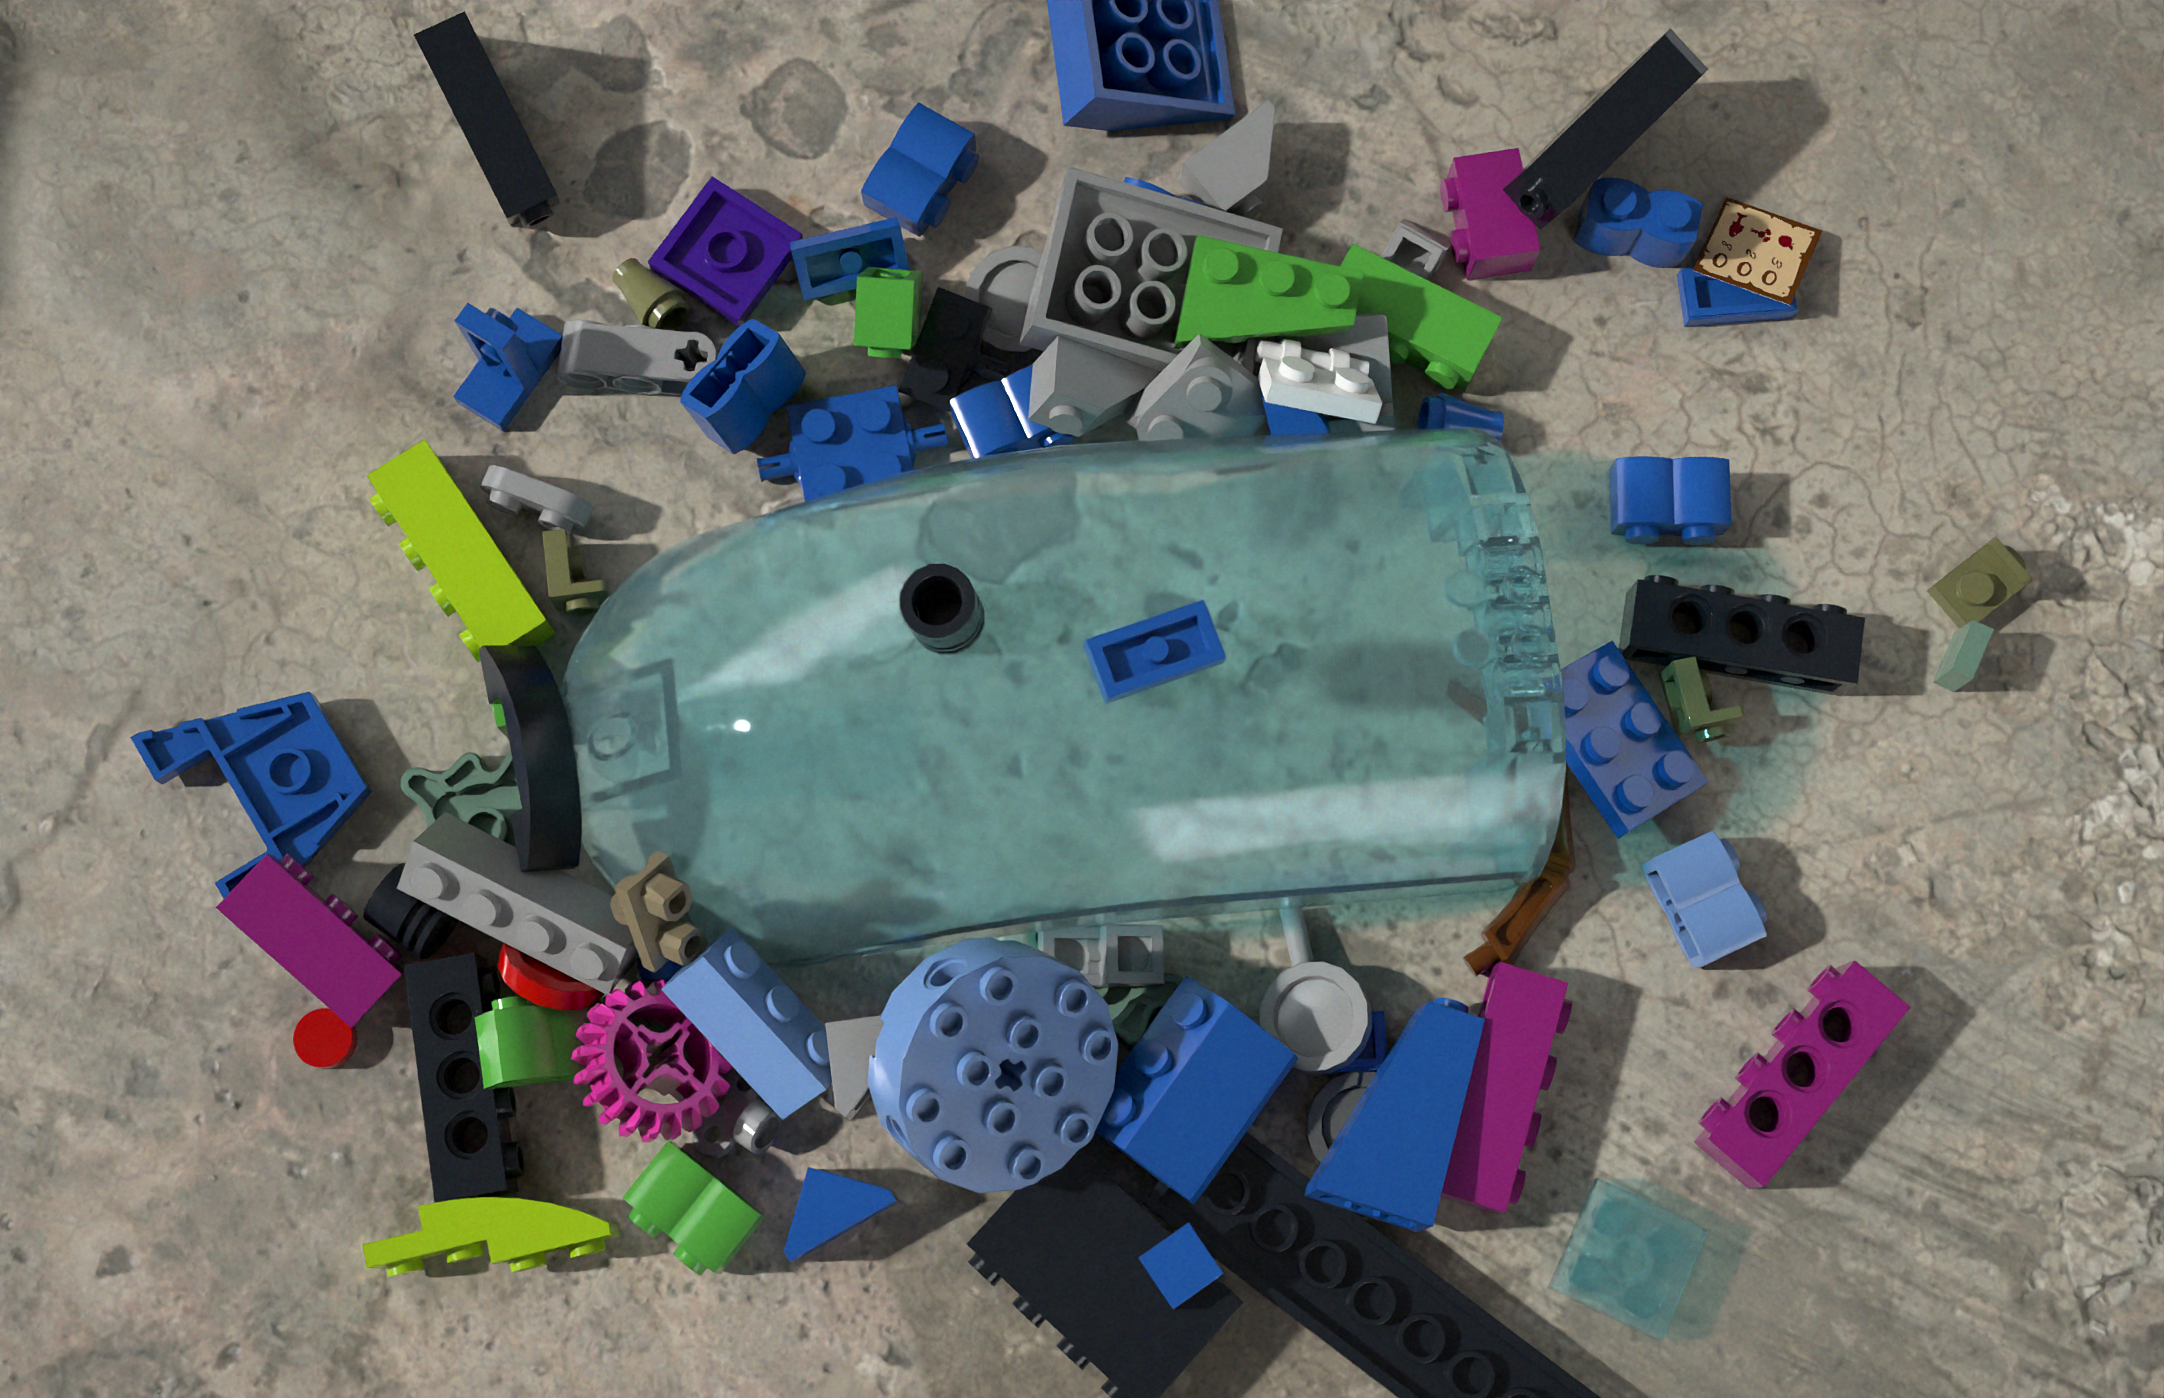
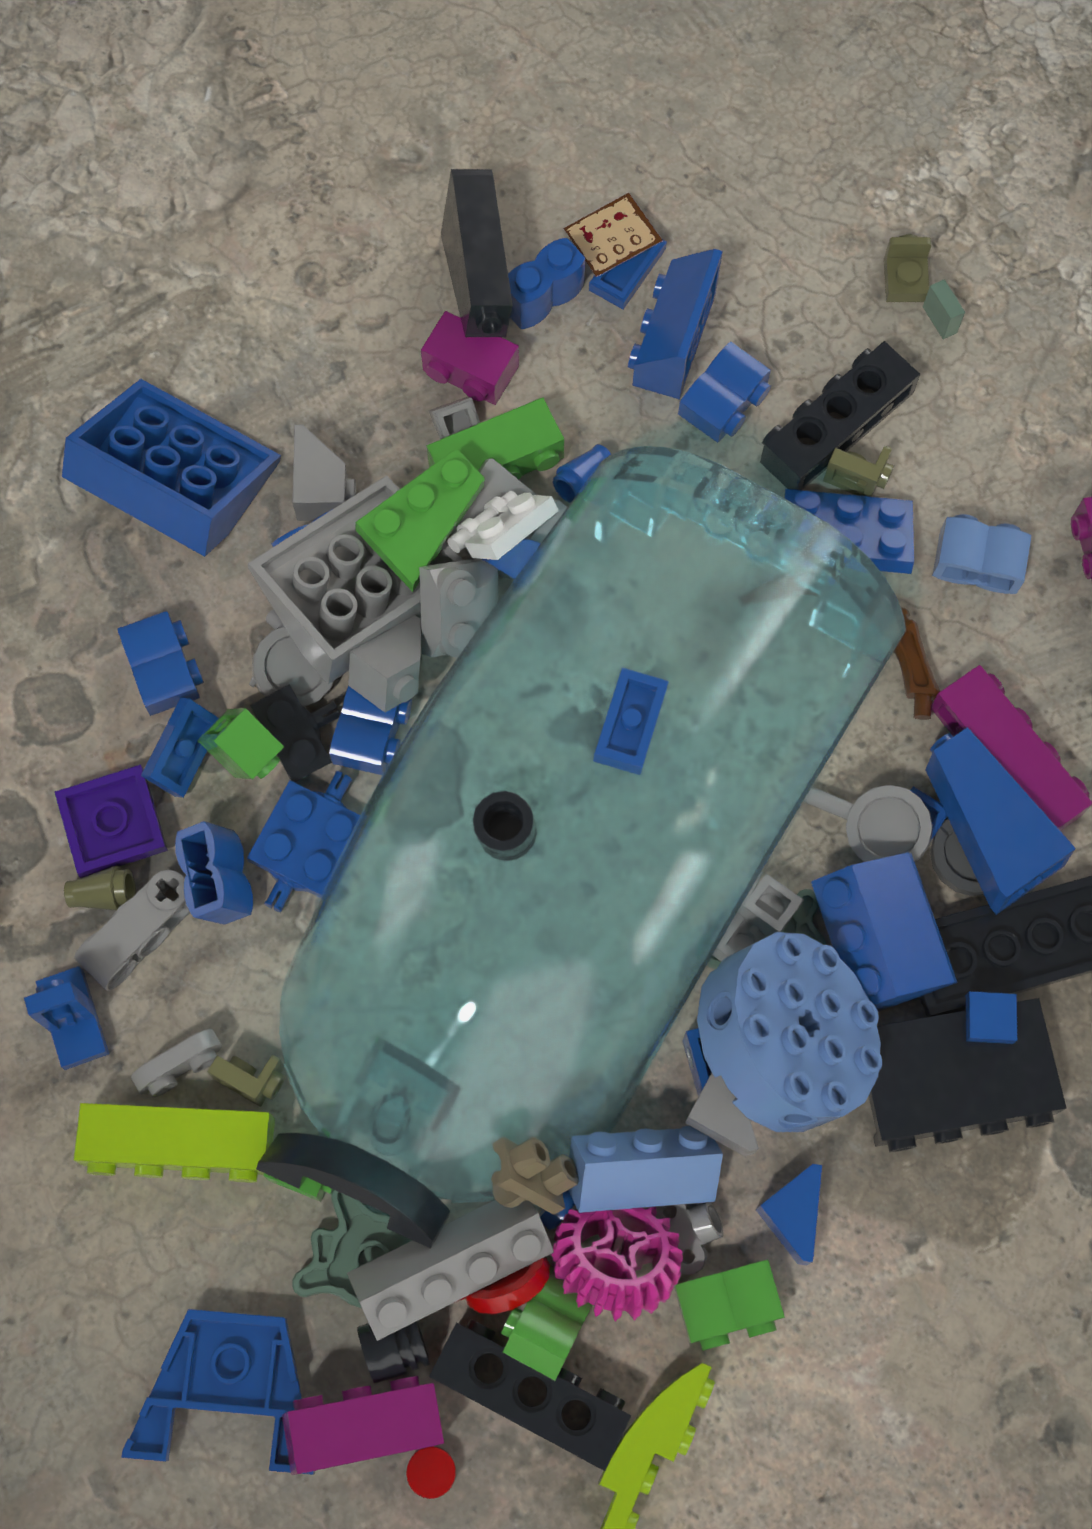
camera: 50 degrees left, 5 degrees down
(1705, 390) = (675, 323): none -> blue slope

